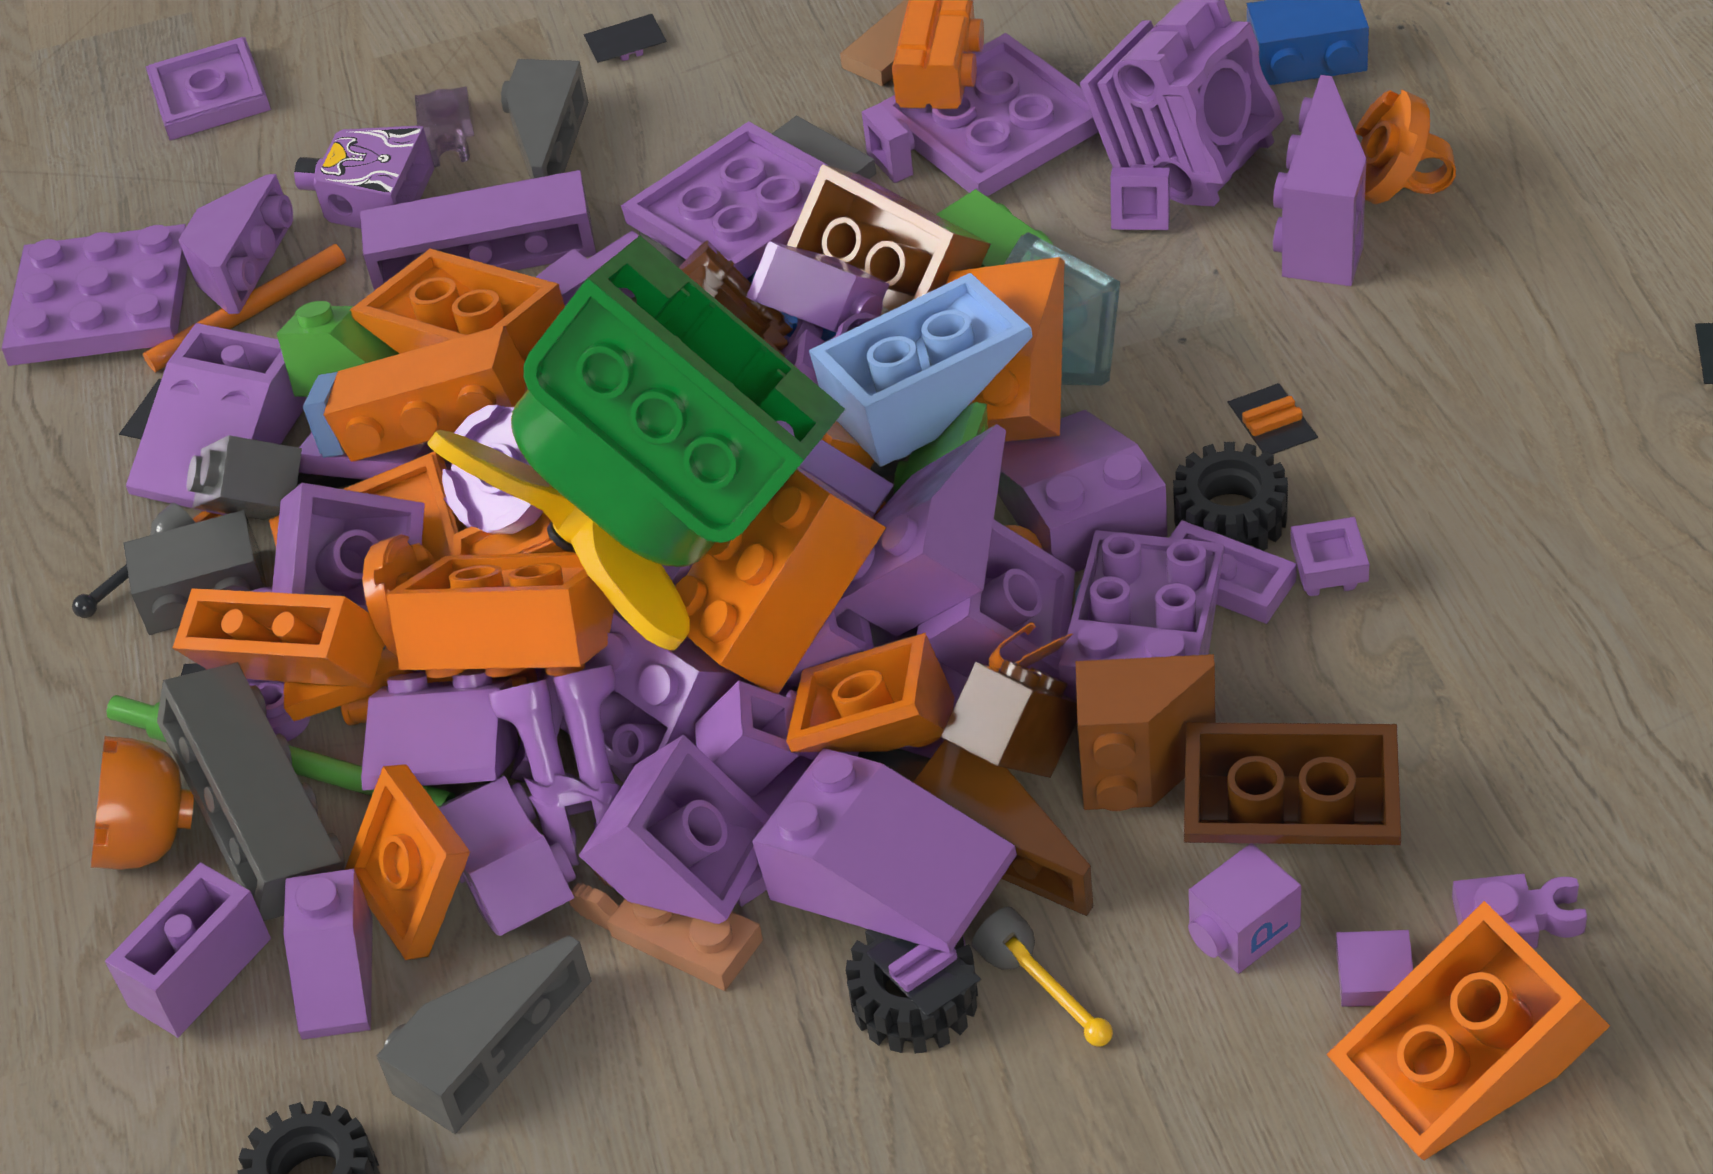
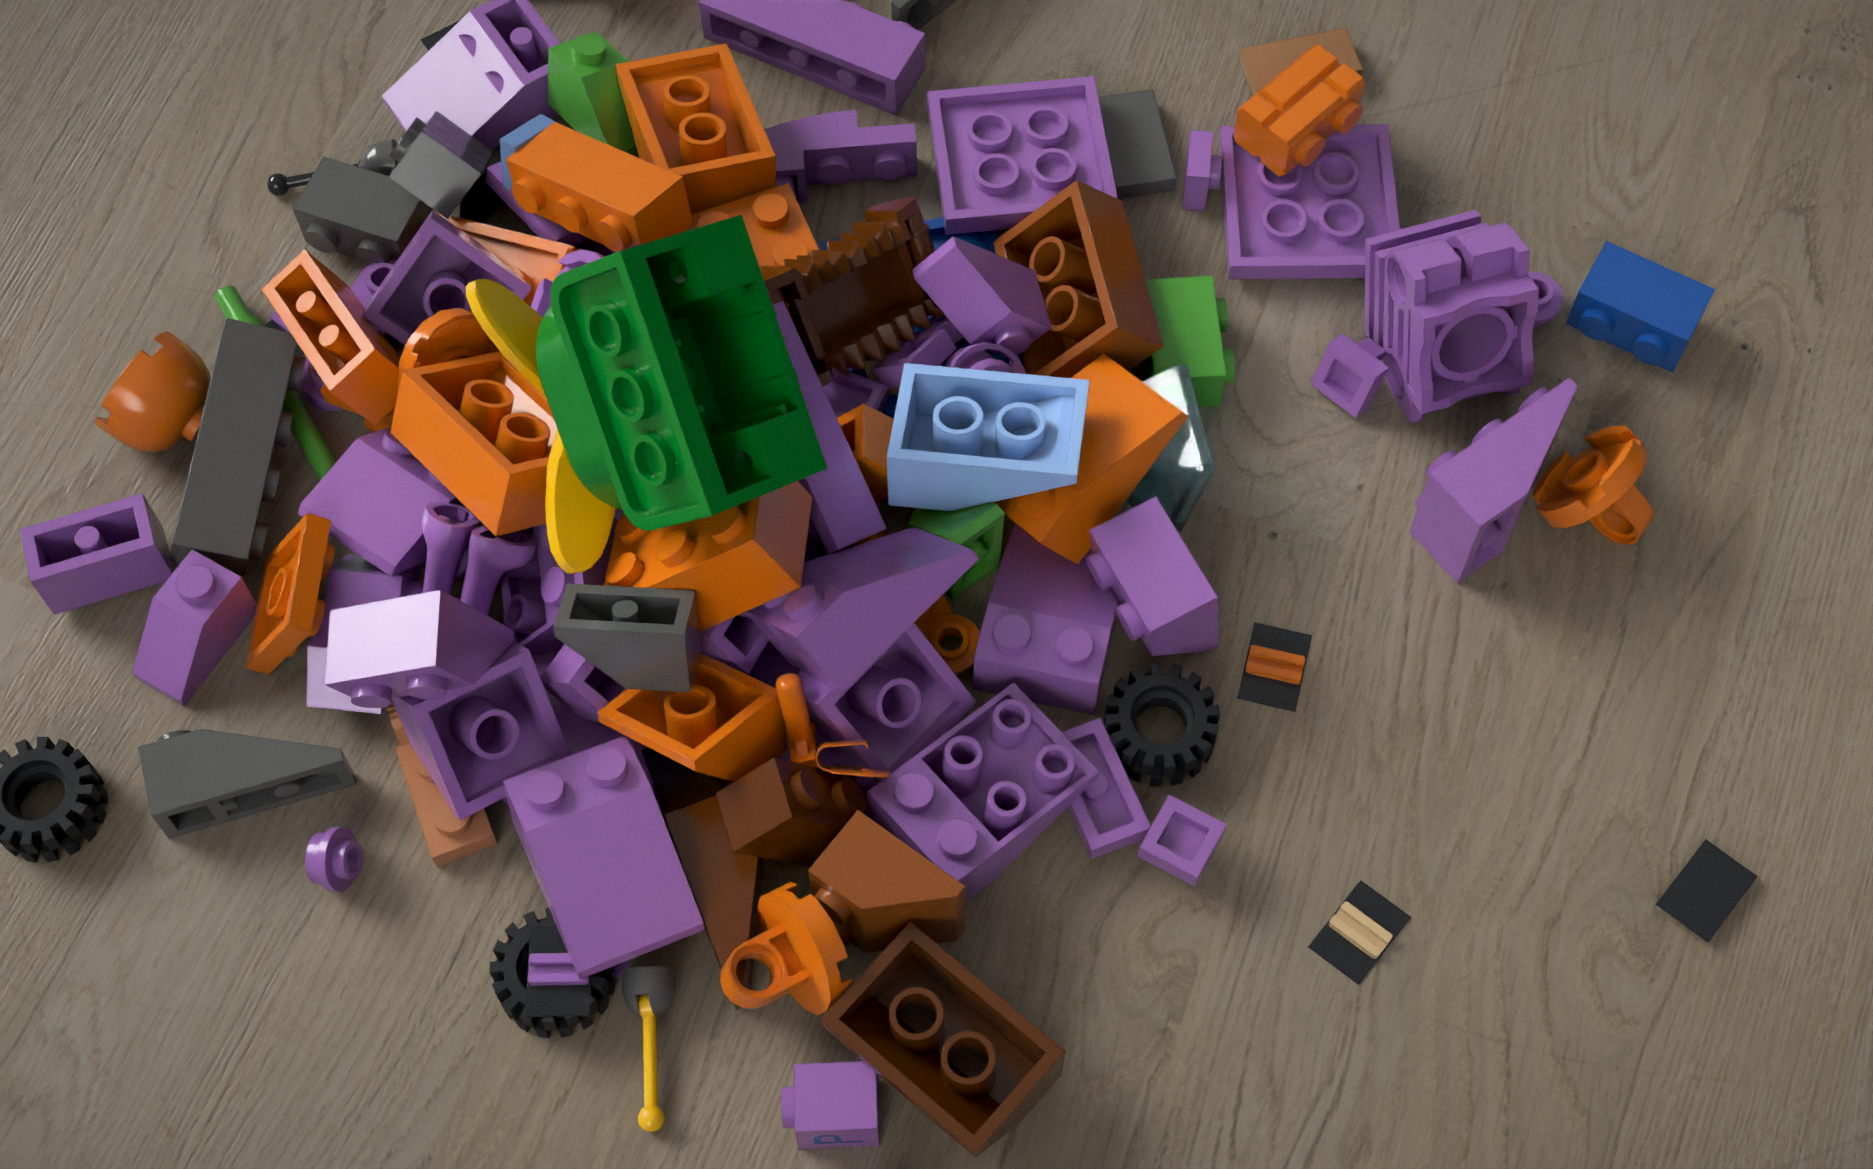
camera: 30 degrees right, 15 degrees up
(581, 785) = (410, 648): none -> slope
(634, 1032) = (334, 859): none -> medium lavender plate
(776, 652) = (633, 633): none -> dark grey slope
(949, 647) = (800, 732): none -> orange bar
(1113, 811) = (797, 948): none -> orange tile
(1141, 388) = (1155, 580): none -> medium lavender slope
(1514, 542) = (1359, 932): none -> black piece

